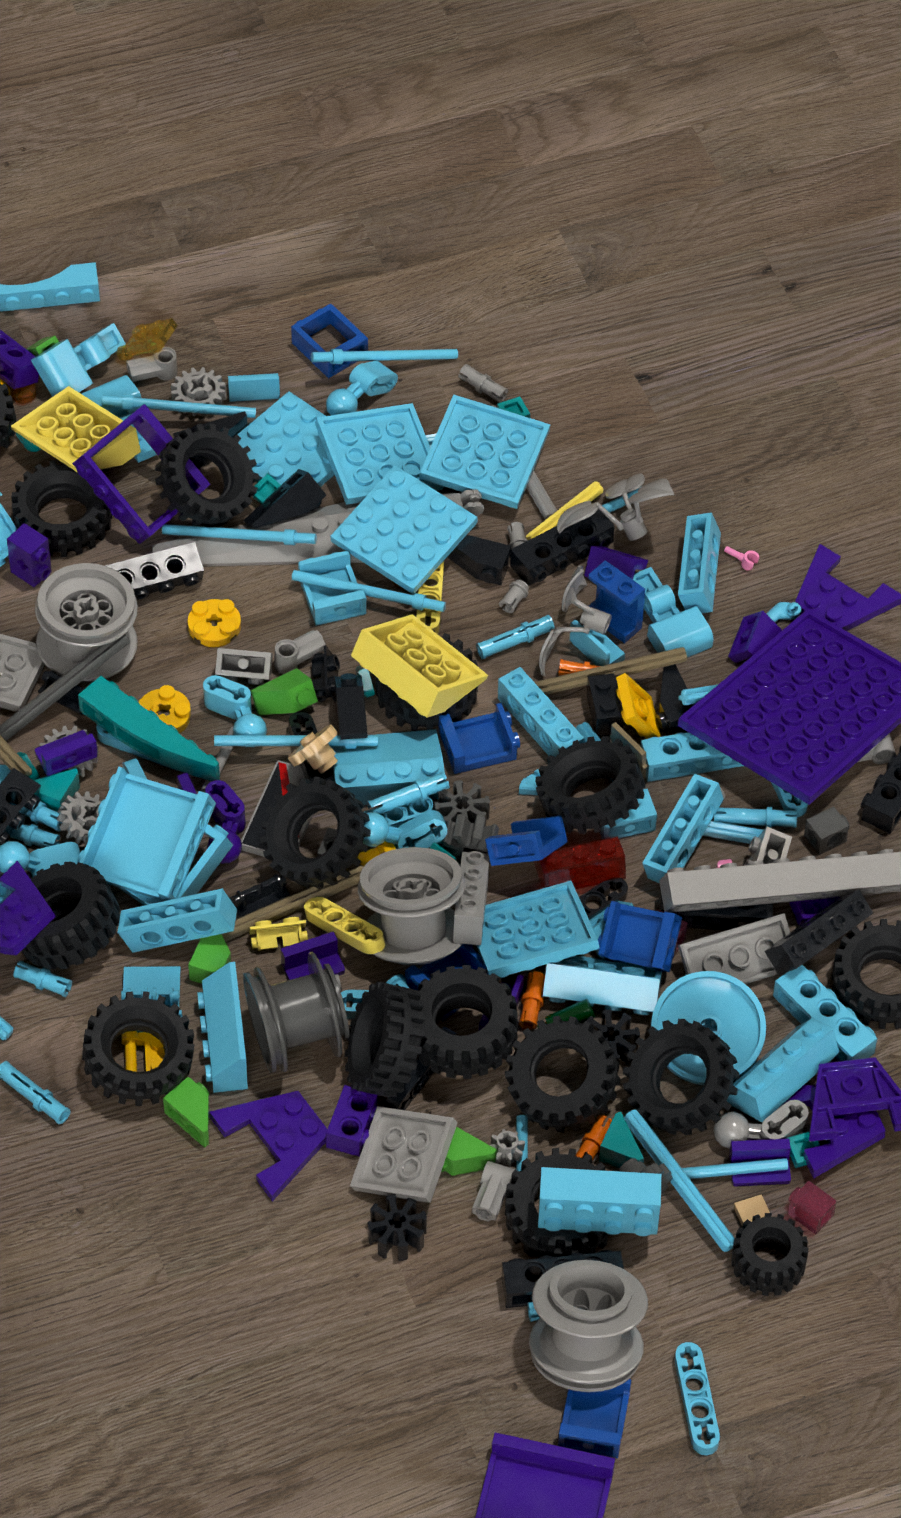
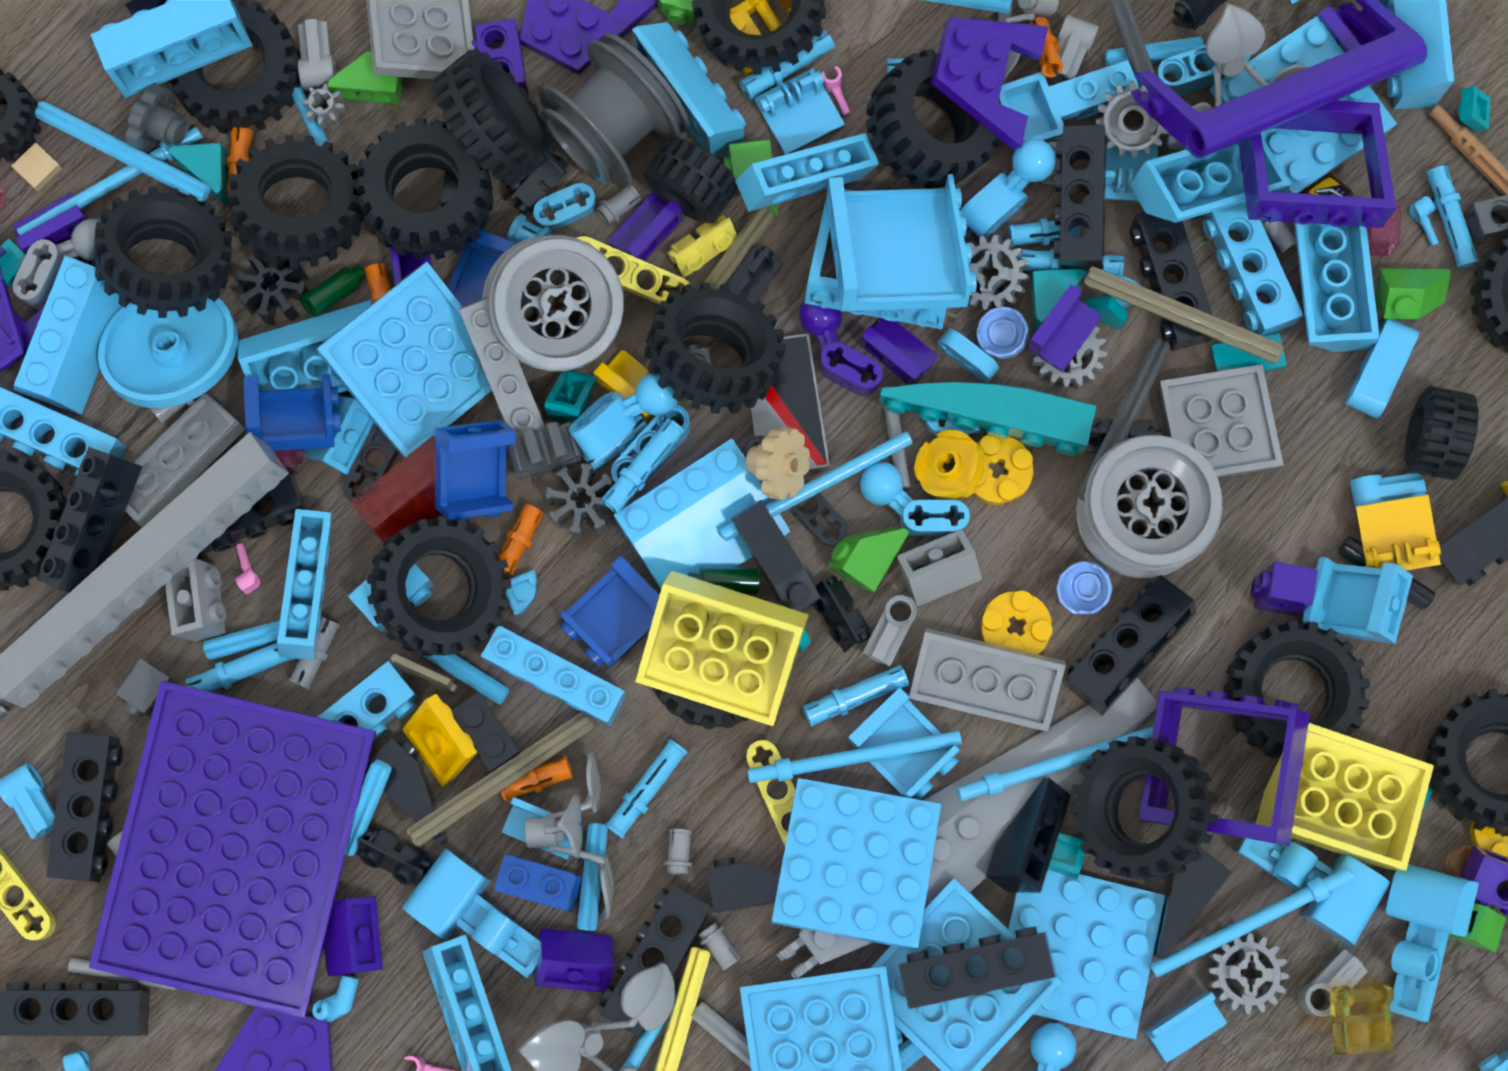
camera: 155 degrees right, 25 degrees up
(99, 775) = (1002, 332): none -> light blue hair
(114, 990) = (834, 86): none -> bright pink hand
(156, 617) = (1084, 588): none -> light blue hair
(197, 704) = (962, 478): none -> yellow plate
(255, 595) = (987, 679): none -> light grey plate
(263, 947) = (691, 179): none -> black tyre
(339, 627) = (850, 697): none -> medium azure pin
(363, 441) = (923, 991): none -> black brick
(391, 722) = (737, 579): none -> dark green cylinder
(505, 818) = (519, 536): none -> orange pin
(573, 613) = (591, 878): none -> medium azure axle
(698, 662) = (378, 850): none -> black hinge

